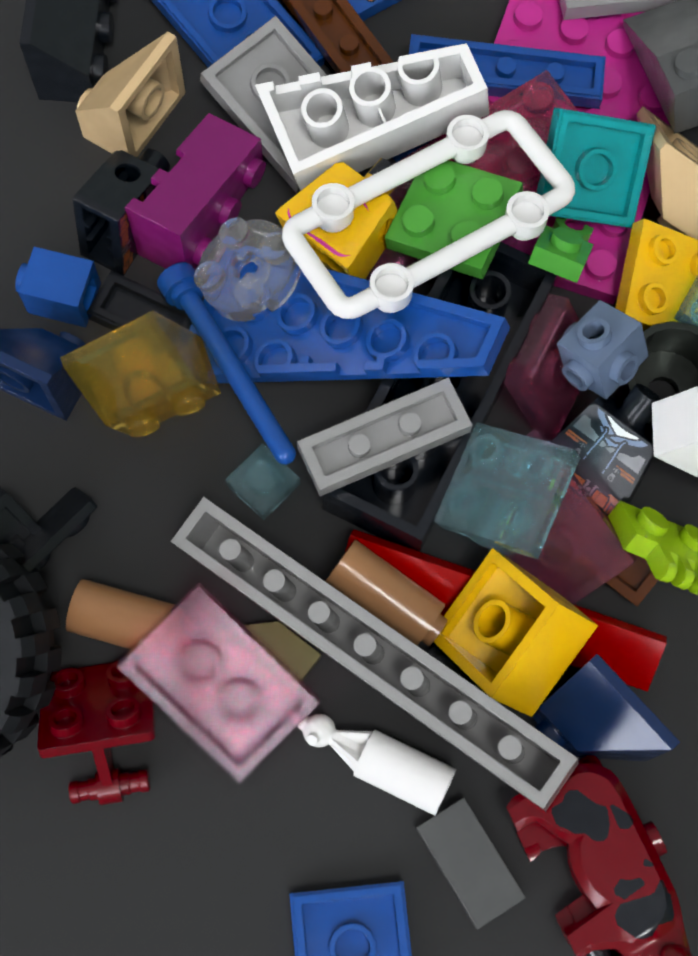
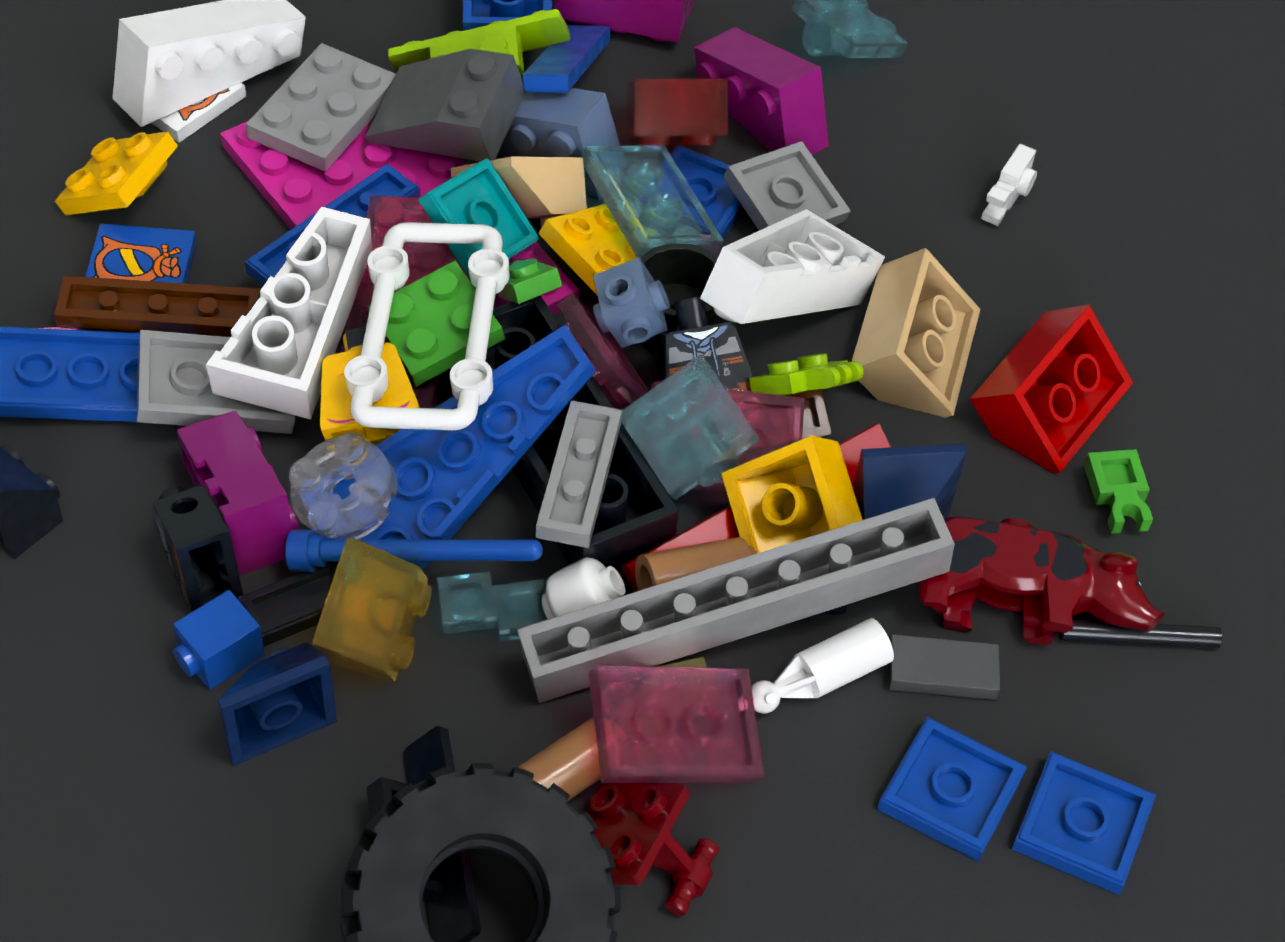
camera: 55 degrees left, 20 degrees down
(133, 98) = (101, 481): tan slope -> none
(229, 436) = (466, 602): none -> clear light blue plate
(297, 521) = (581, 586): none -> white head

